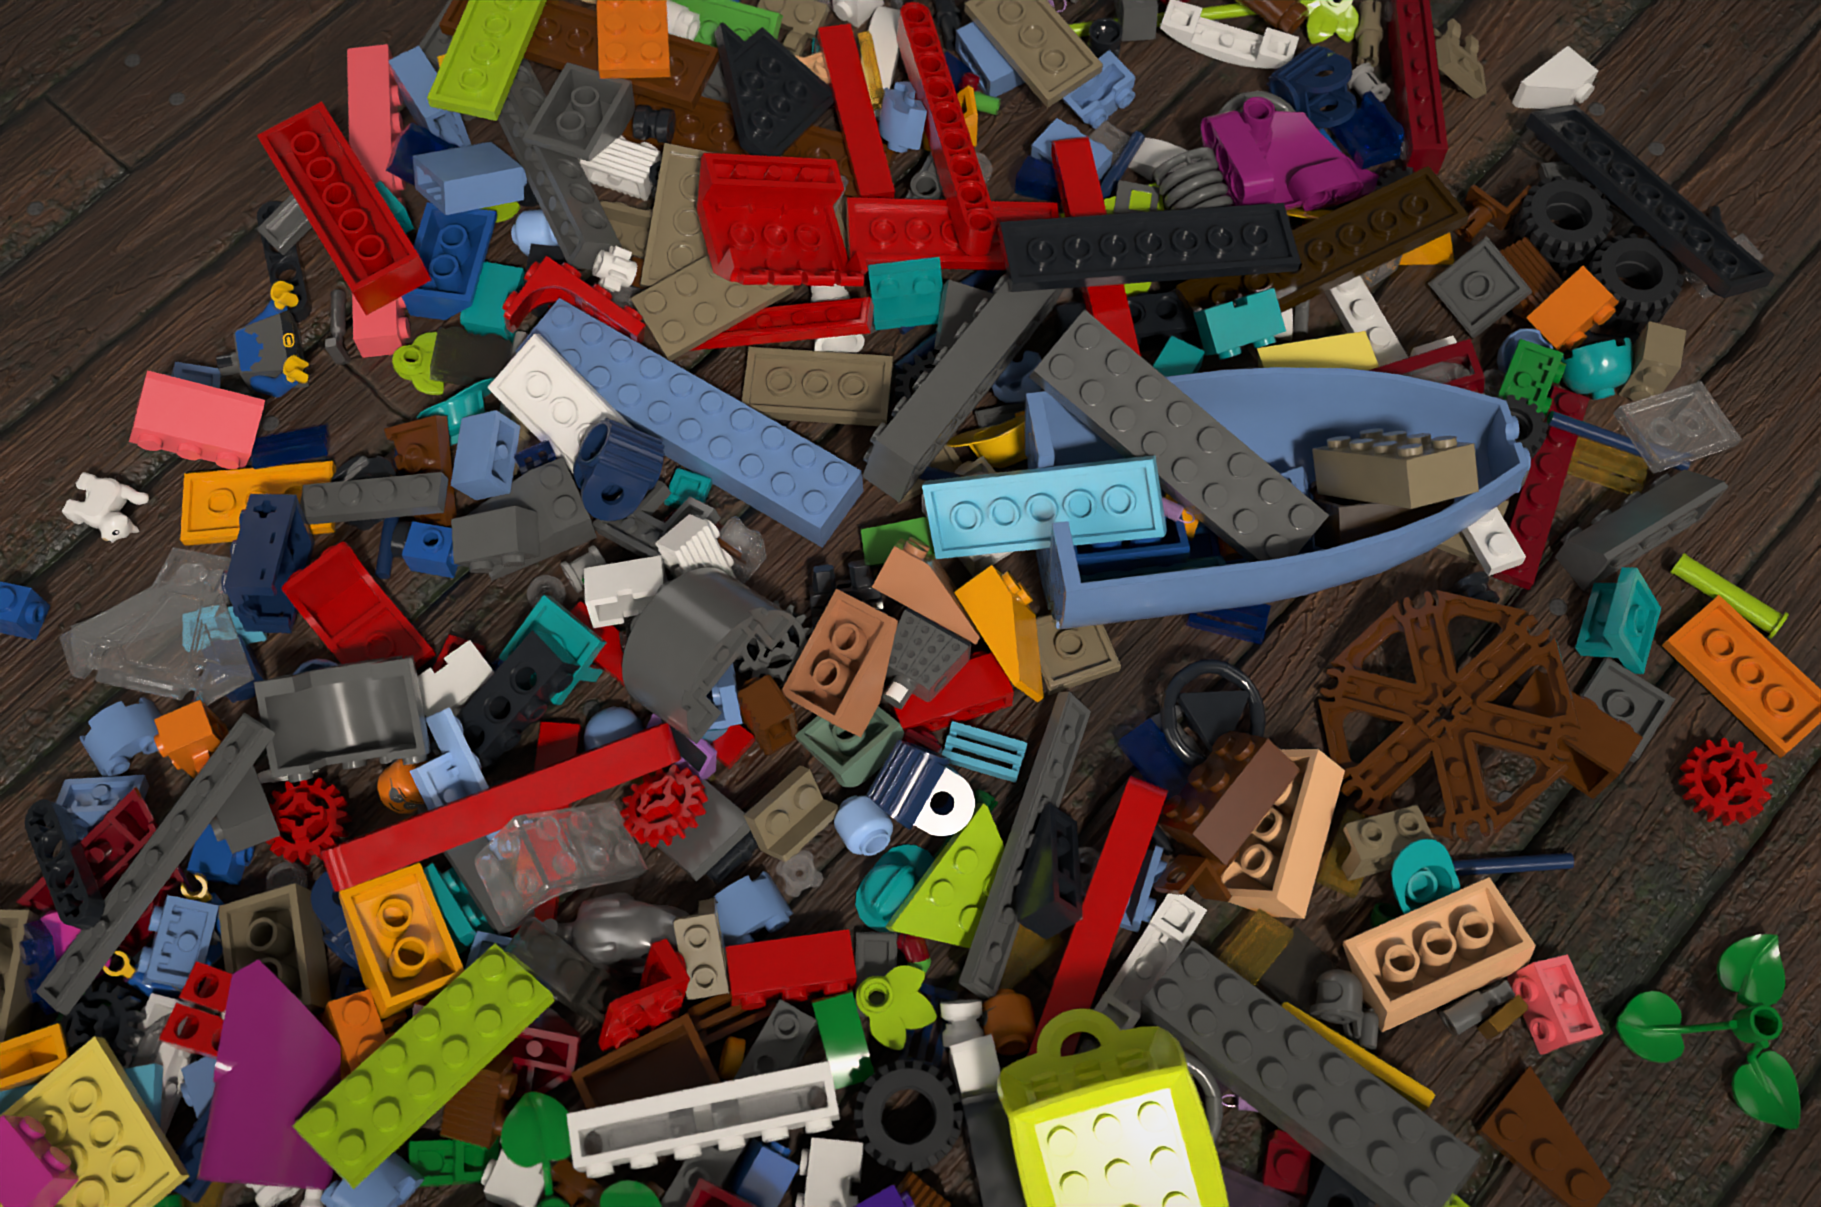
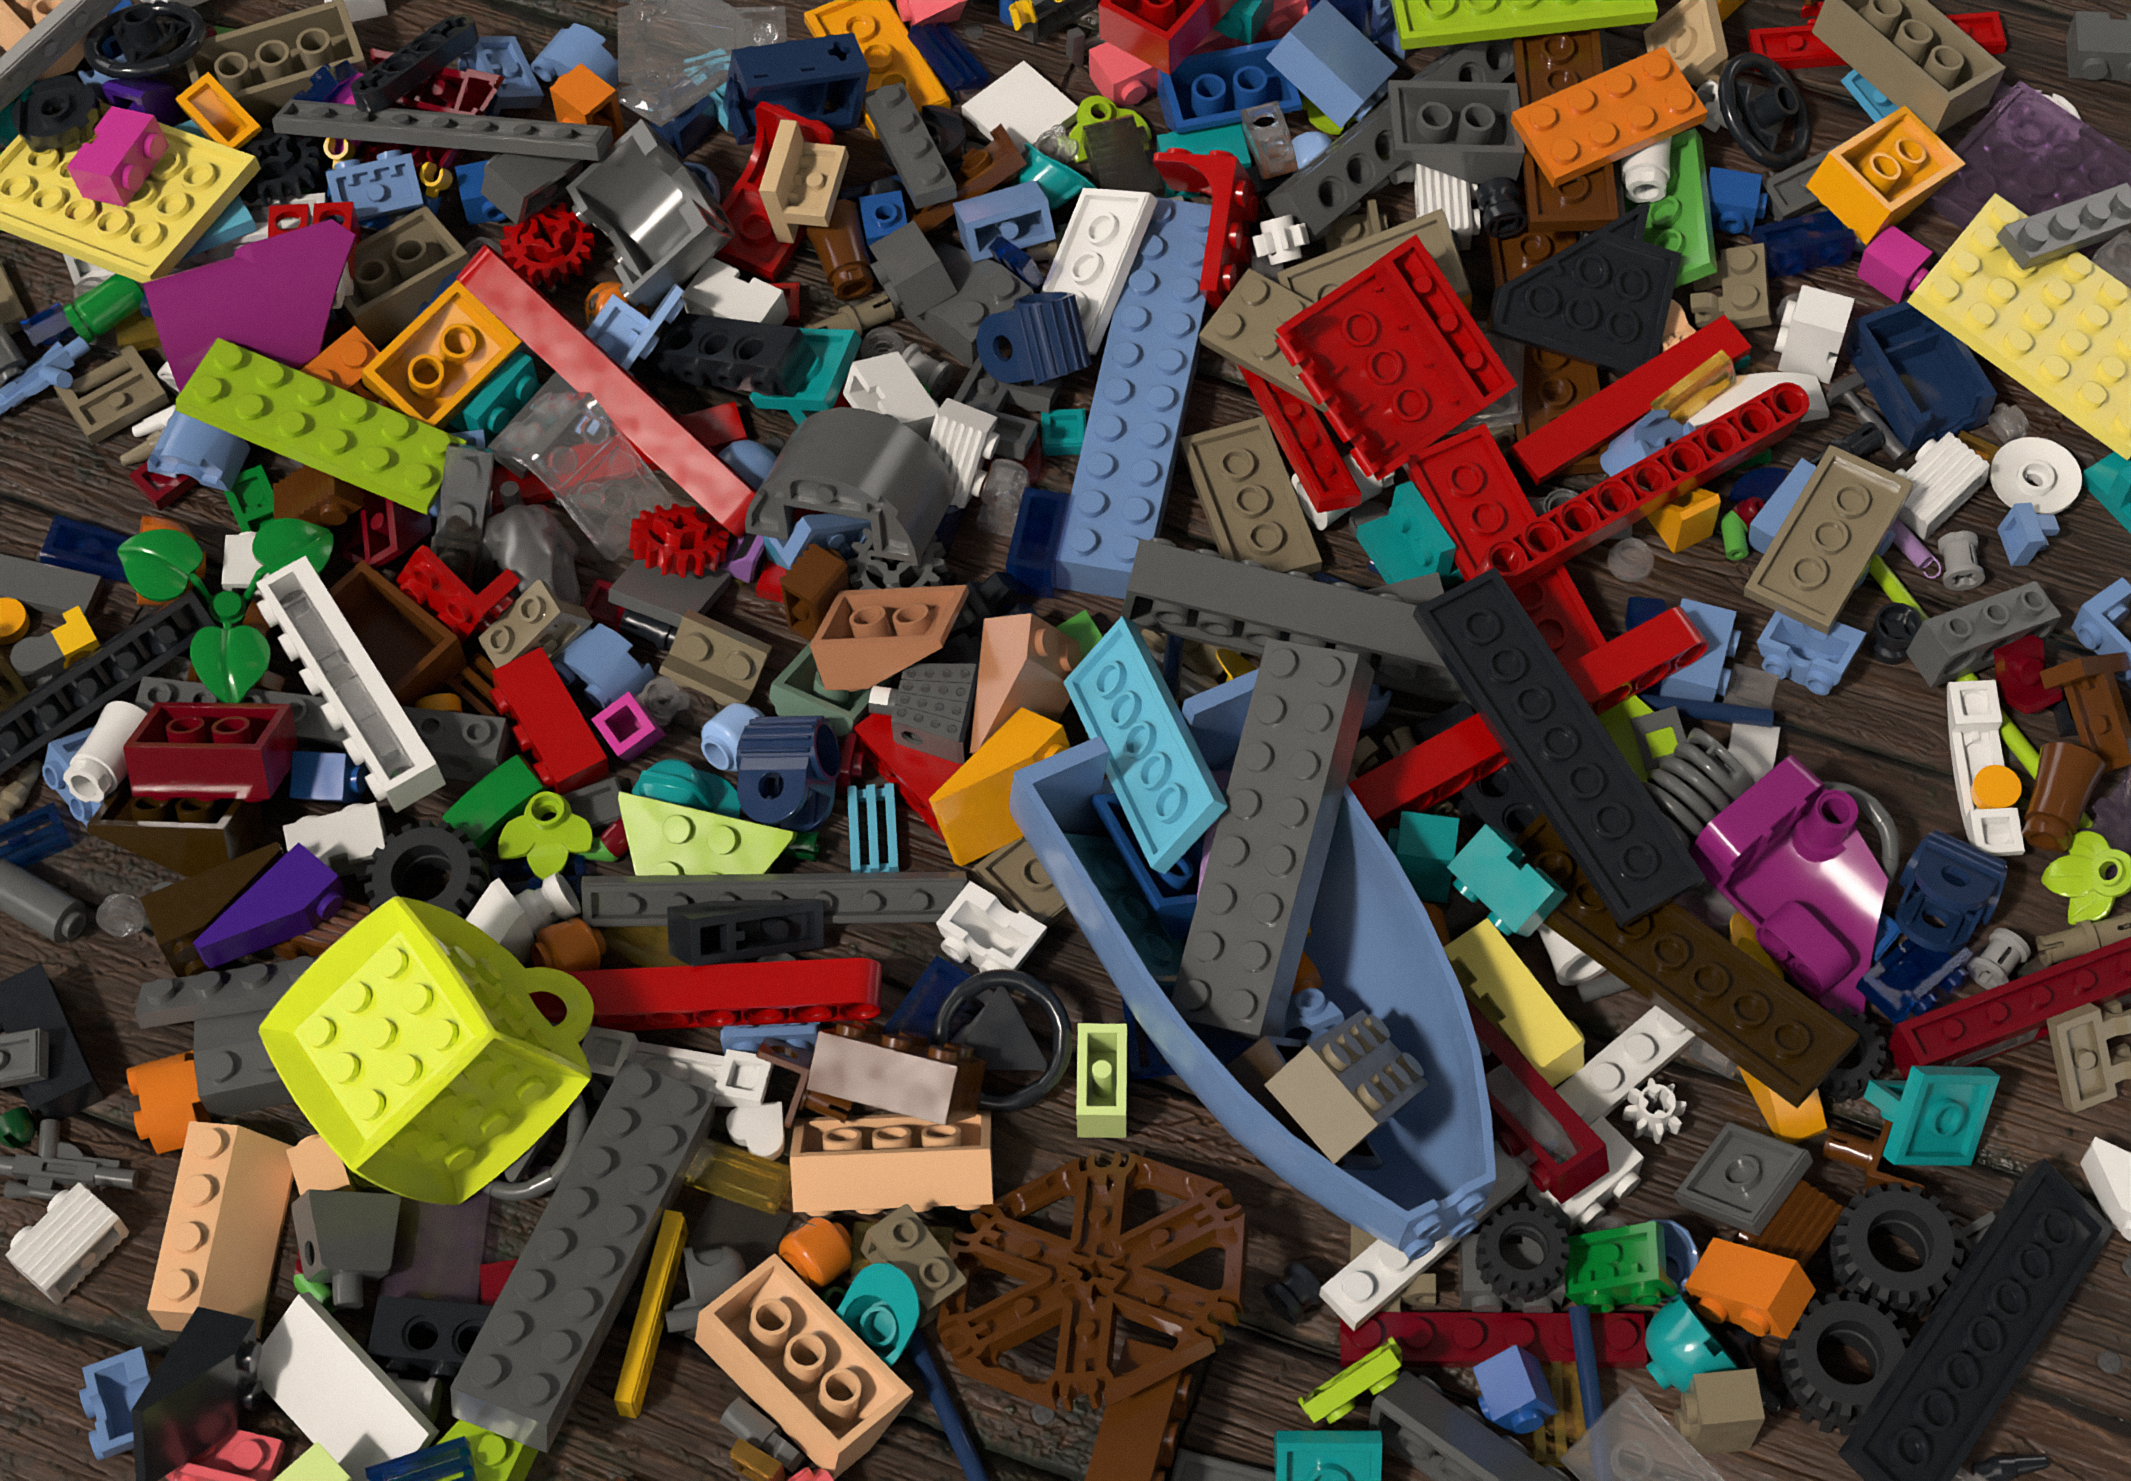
camera: 70 degrees right, 5 degrees down
(366, 410) = (1022, 104): none -> white tile
(378, 583) = (800, 181): none -> tan bracket
(416, 397) = (1057, 144): none -> clear plate
(439, 588) = (843, 251): none -> reddish brown plant
(509, 605) = (860, 316): none -> dark tan pin
(517, 243) = (1269, 144): none -> clear leg
(685, 891) = (600, 608): none -> dark red tile
(792, 537) = (1037, 541): none -> clear blue brick
(824, 903) = (628, 727): none -> dark pink brick
(1120, 693) = (987, 932): none -> white cylinder
(1216, 925) = (758, 1129): none -> white tile
(1246, 34) = (1995, 788): none -> light orange tile
(1273, 657) = (1101, 1080): none -> yellowish green brick
(1340, 914) = (817, 1252): none -> orange head
(1410, 320) = (1662, 1120): none -> white gear
(1474, 160) = (1934, 1113): none -> teal bracket
(1571, 573) = (1337, 1394): none -> lime plate
(1597, 482) = (1514, 1391): none -> brick

